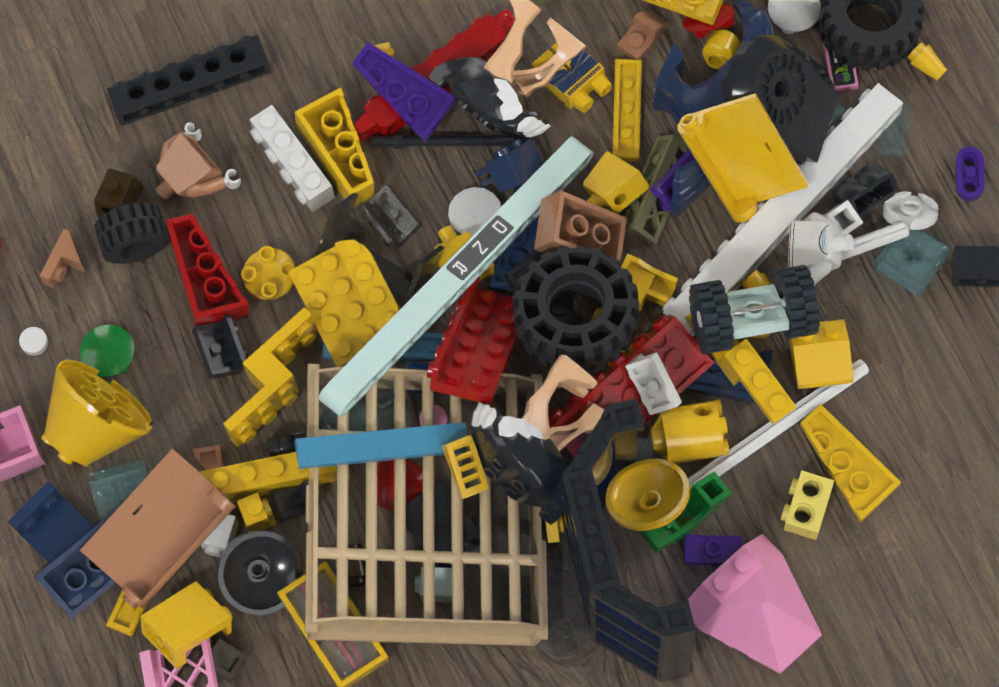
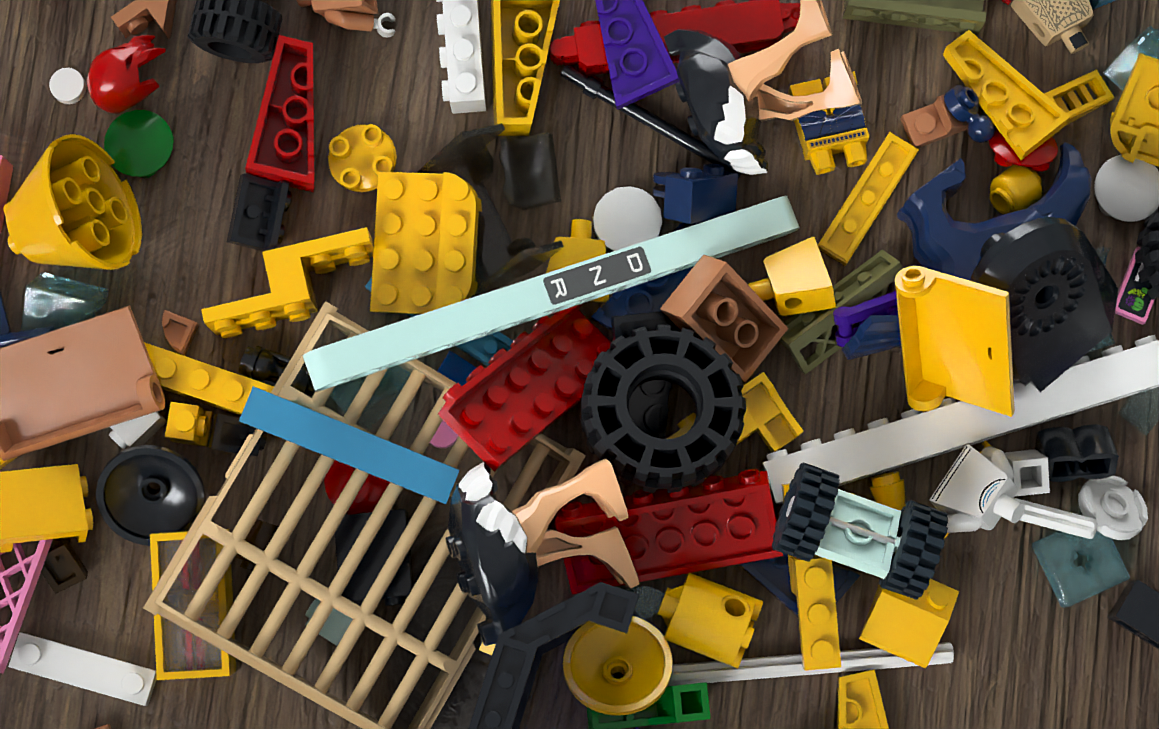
camera: 25 degrees right, 10 degrees up
(68, 316) = (115, 75): none -> red helmet
(448, 449) = (430, 493): yellow slope -> none
(653, 13) = (963, 106): none -> dark blue plate
(653, 383) = (696, 545): white bracket -> none

